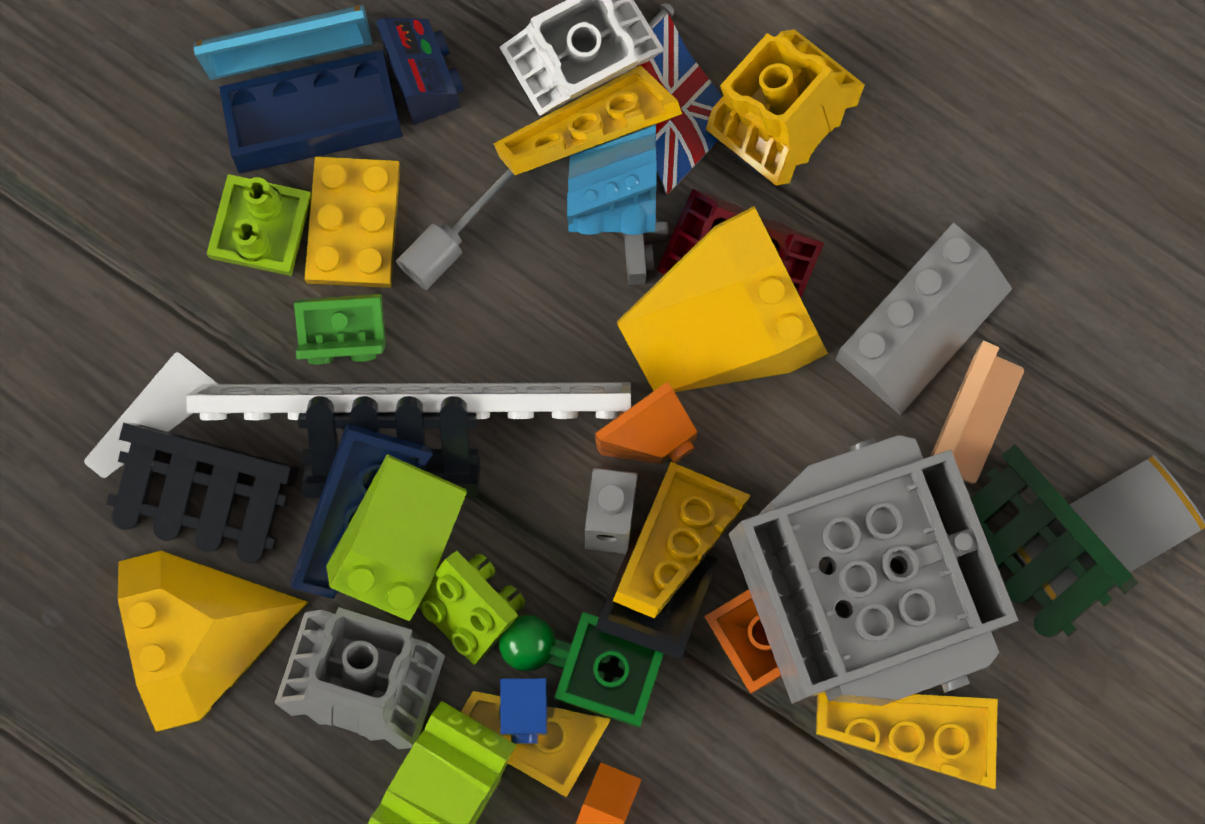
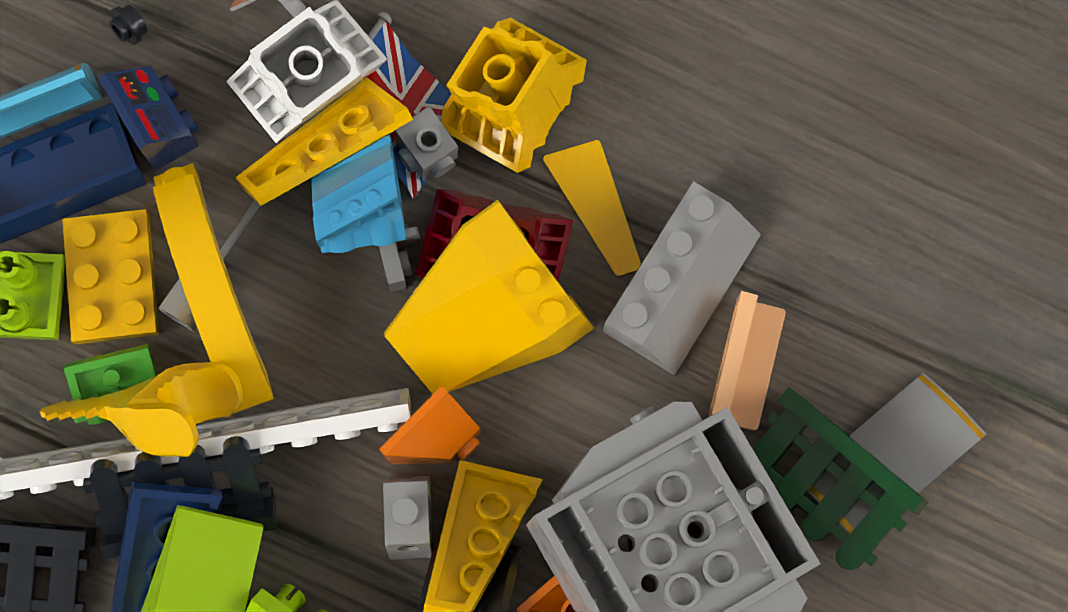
camera: 15 degrees left, 0 degrees up
(388, 359) = (163, 410): none -> yellow animal
(452, 249) = (208, 282): none -> yellow arch
(689, 143) = (426, 145): none -> light grey brick
(847, 217) = (591, 191): none -> yellow sticker

